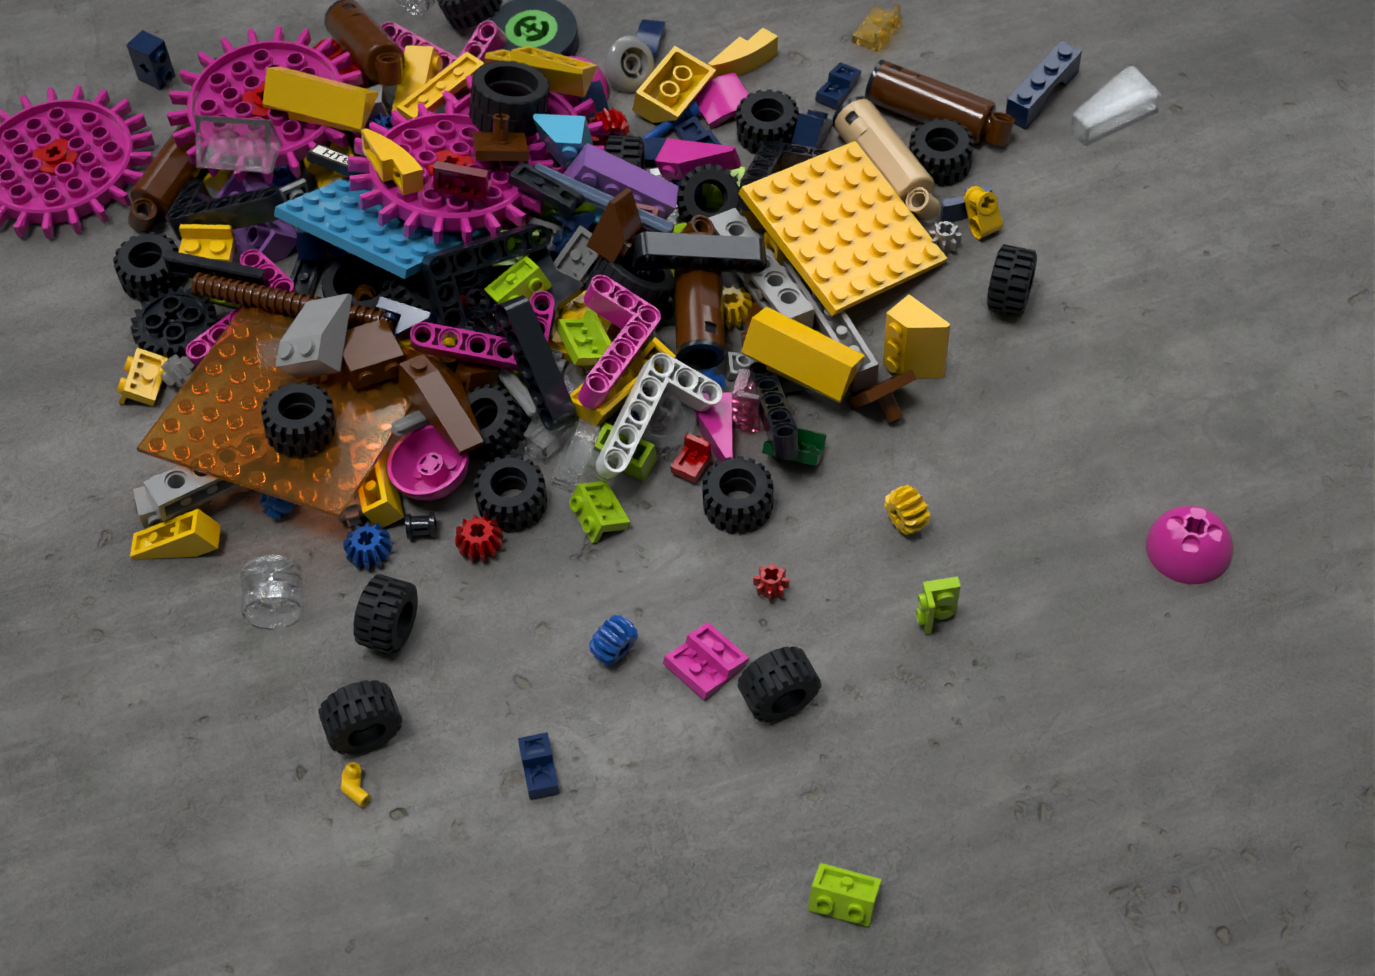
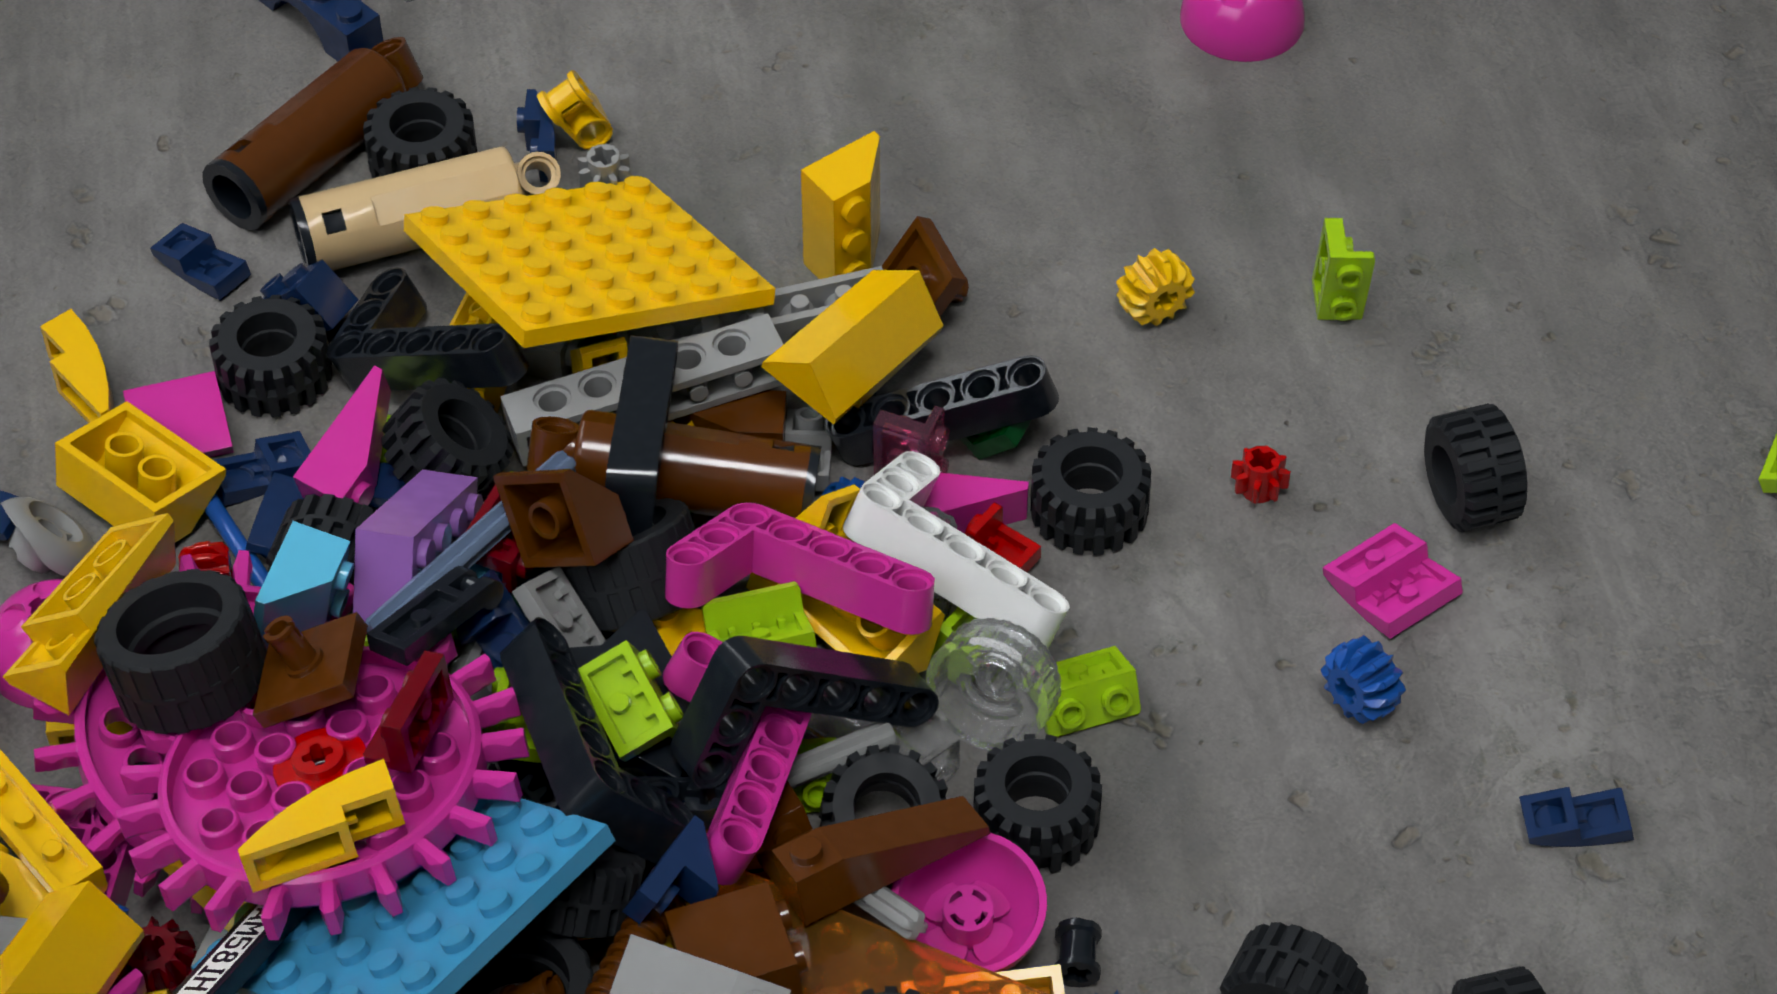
camera: 85 degrees left, 5 degrees down
(478, 538) = (1120, 863): red gear -> none
(877, 27) = (82, 188): clear yellow bracket -> none
(1011, 280) = (741, 90): black tyre -> none

